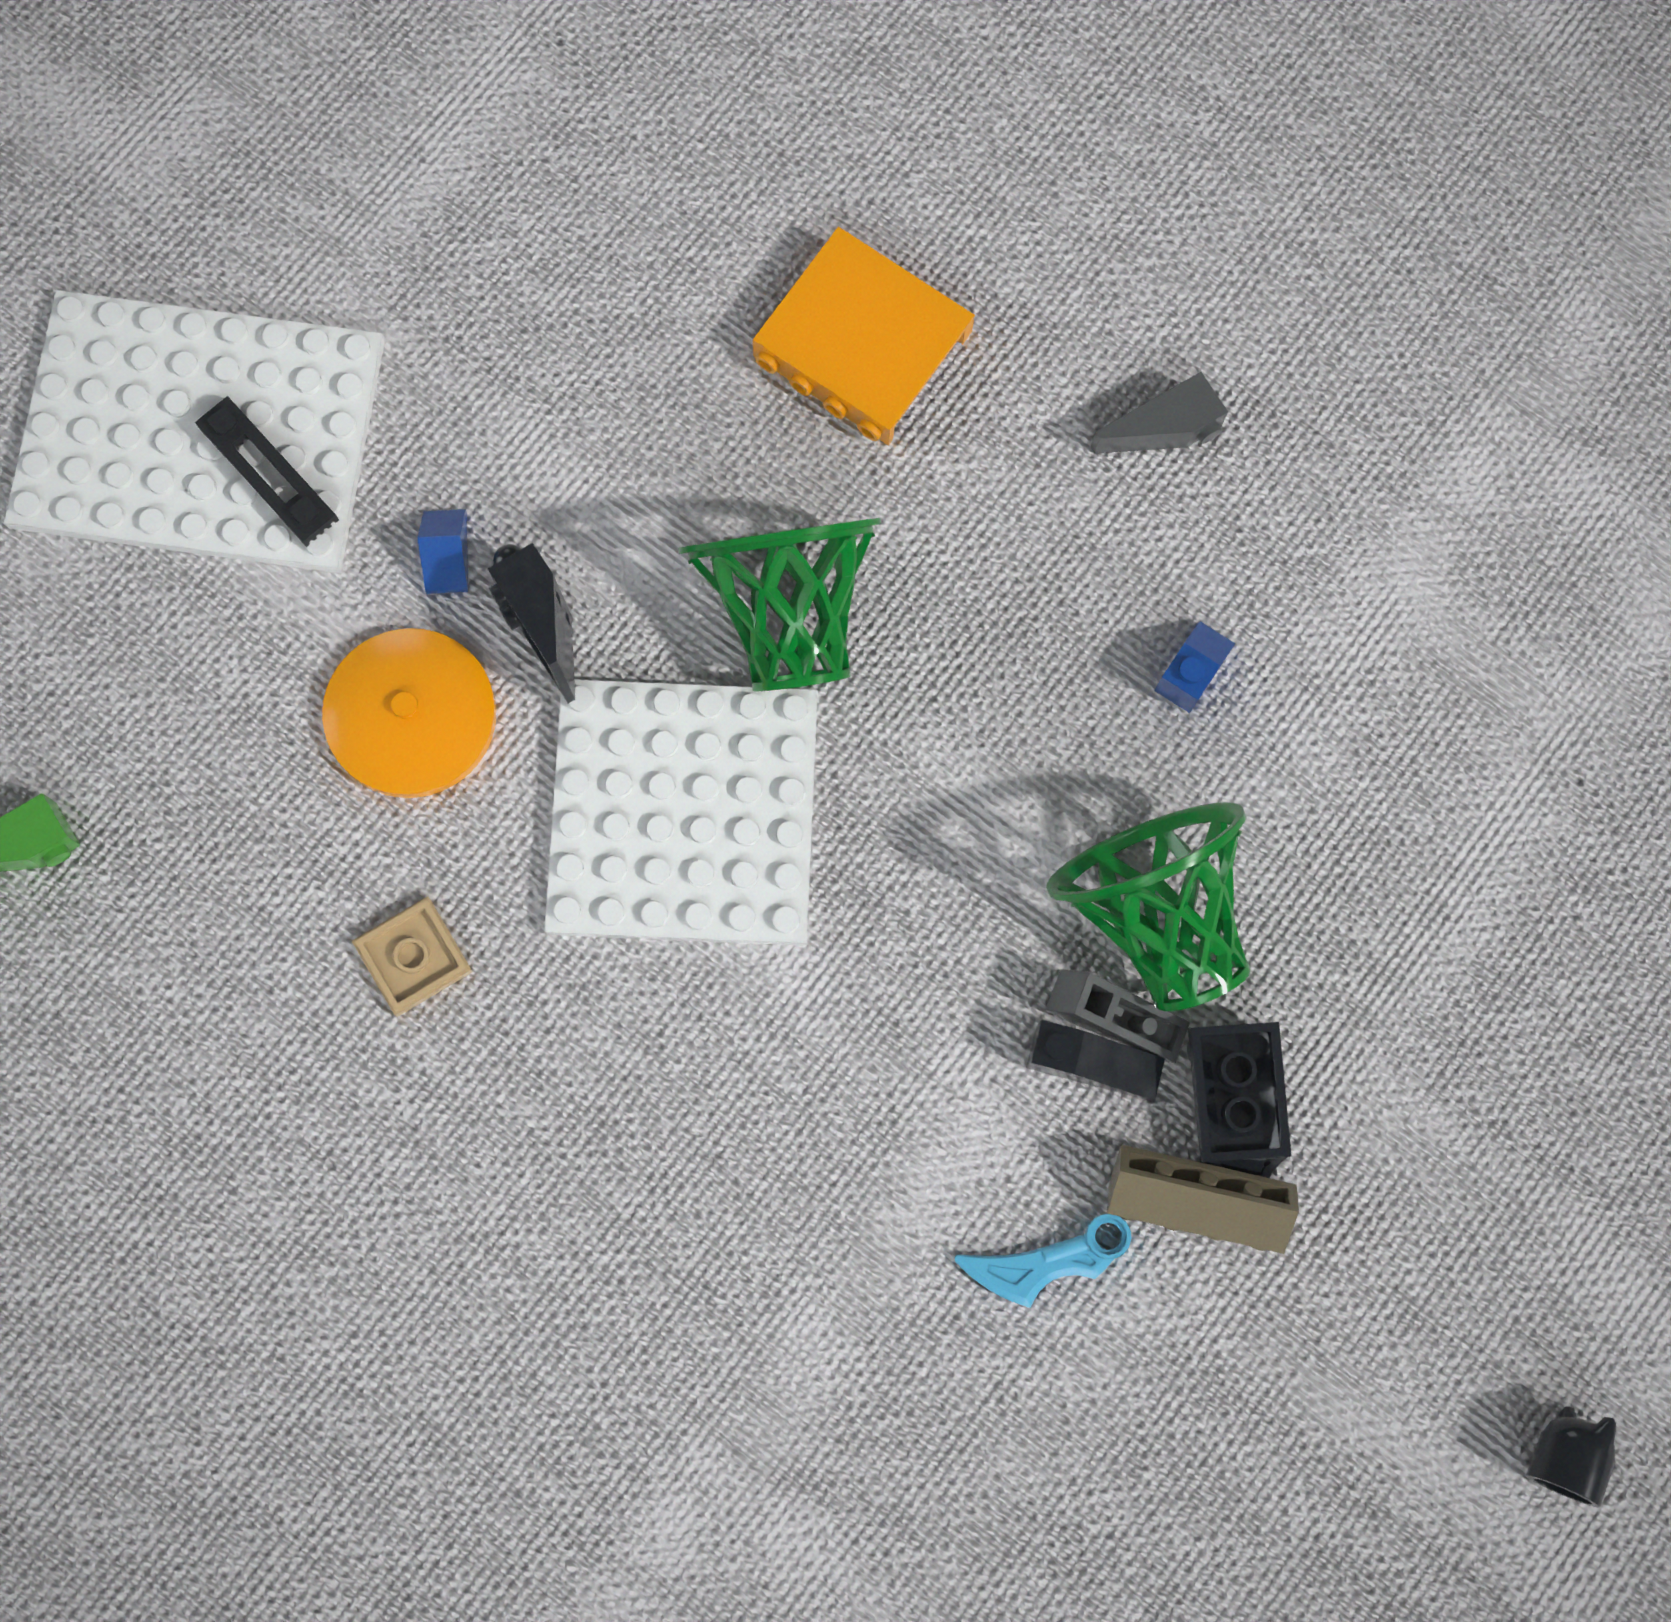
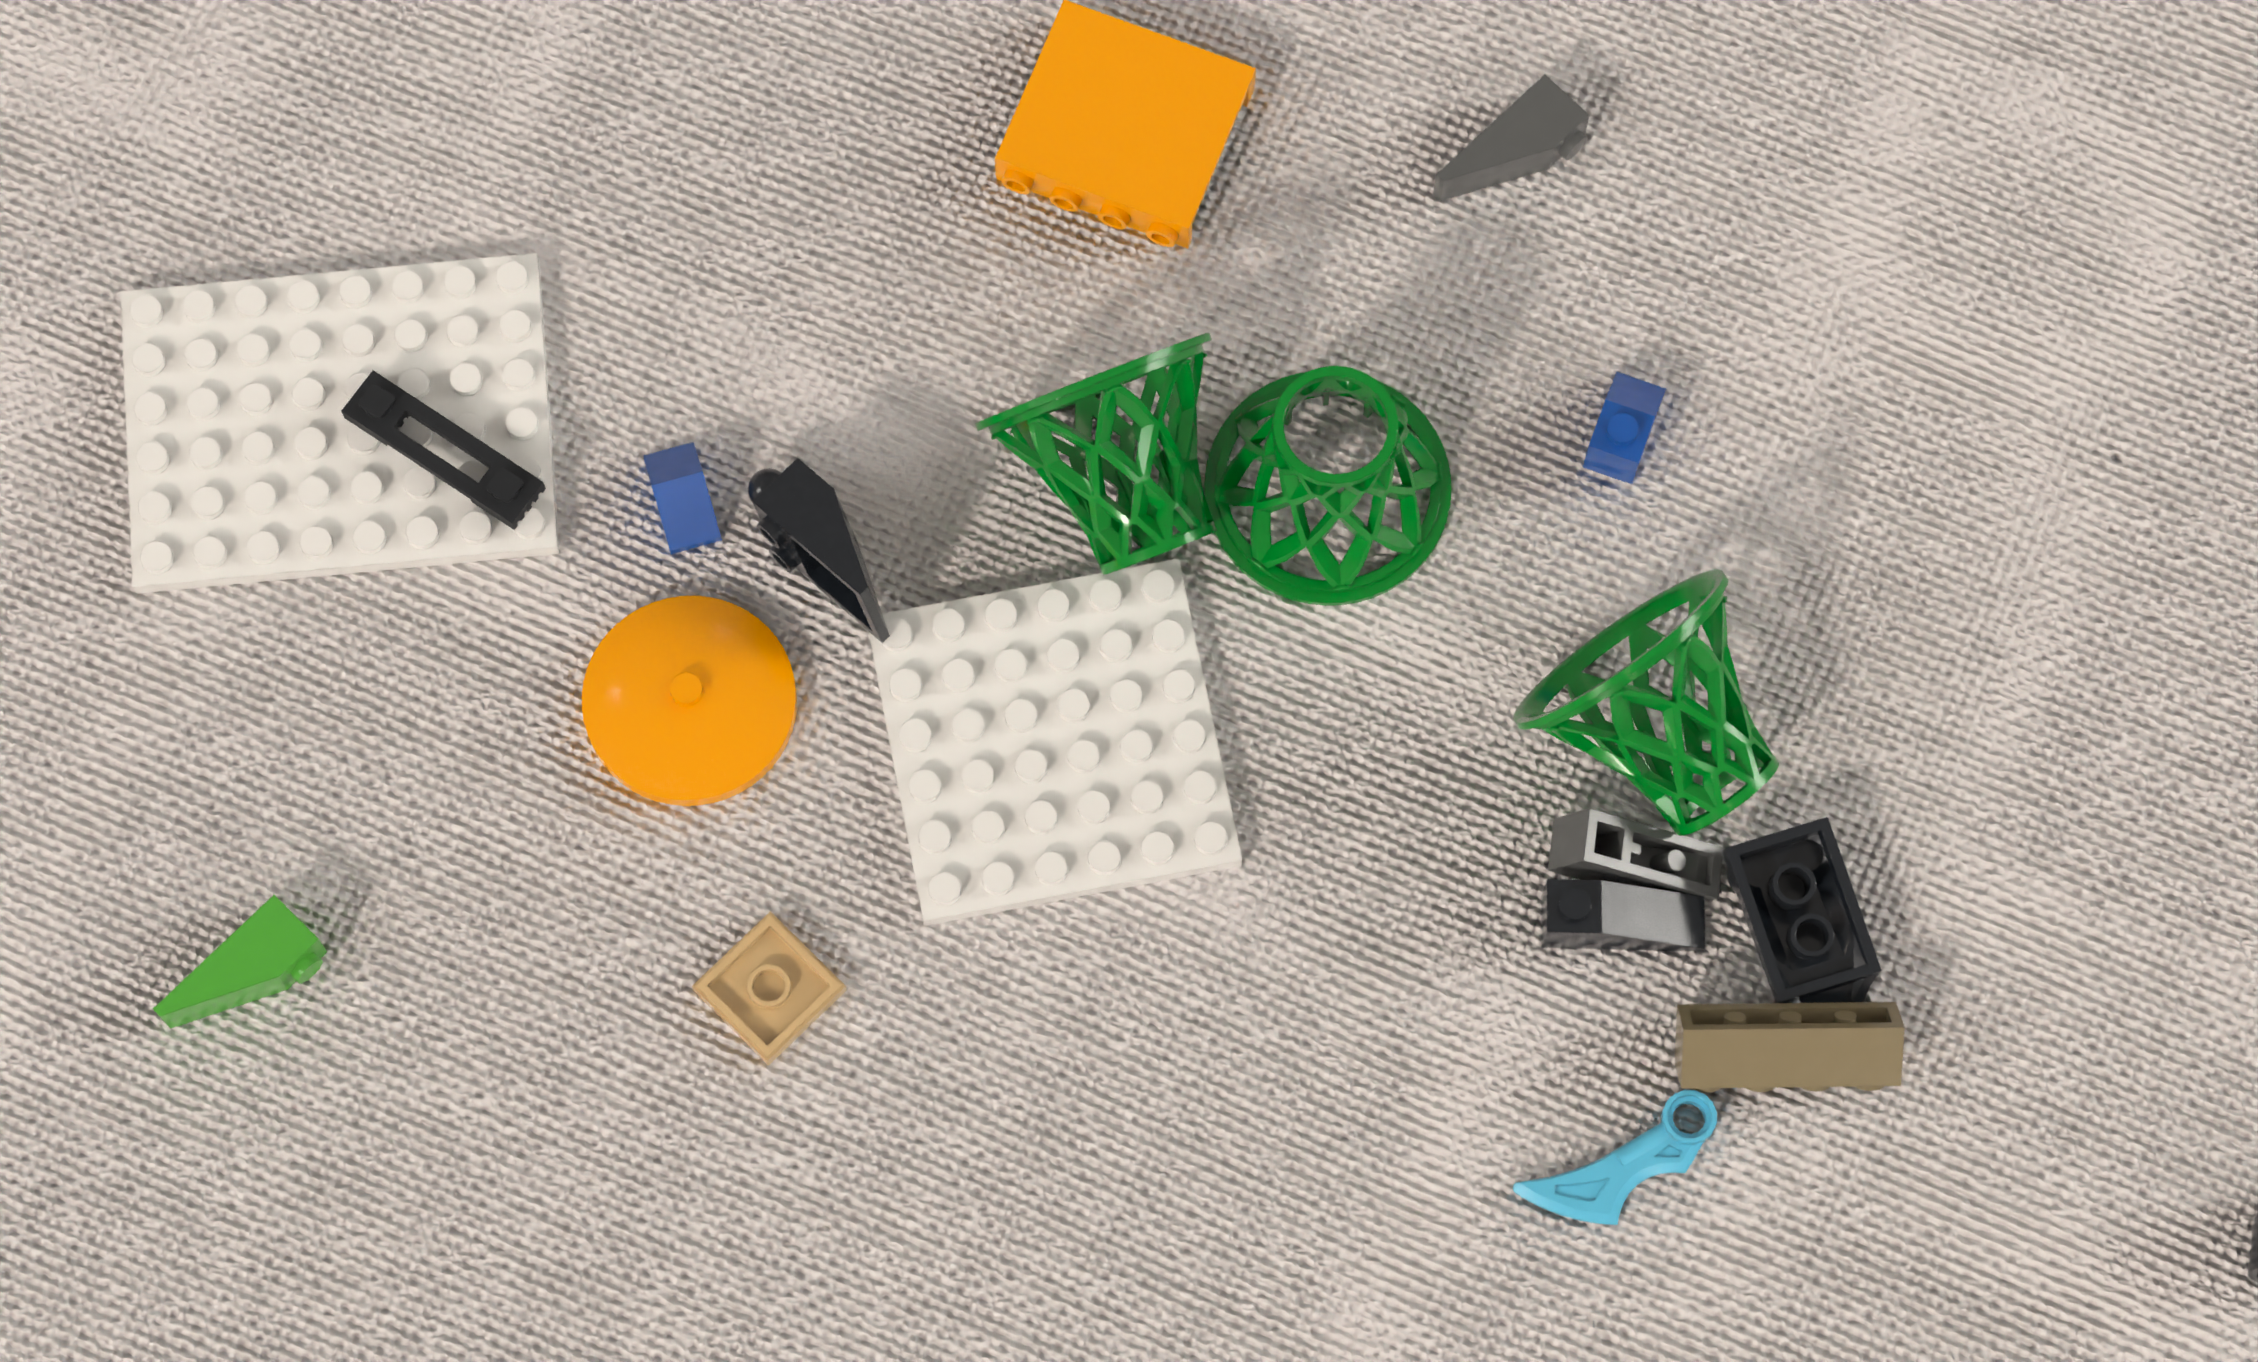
camera: 10 degrees left, 5 degrees down
(940, 740) = (1376, 478): none -> green piece

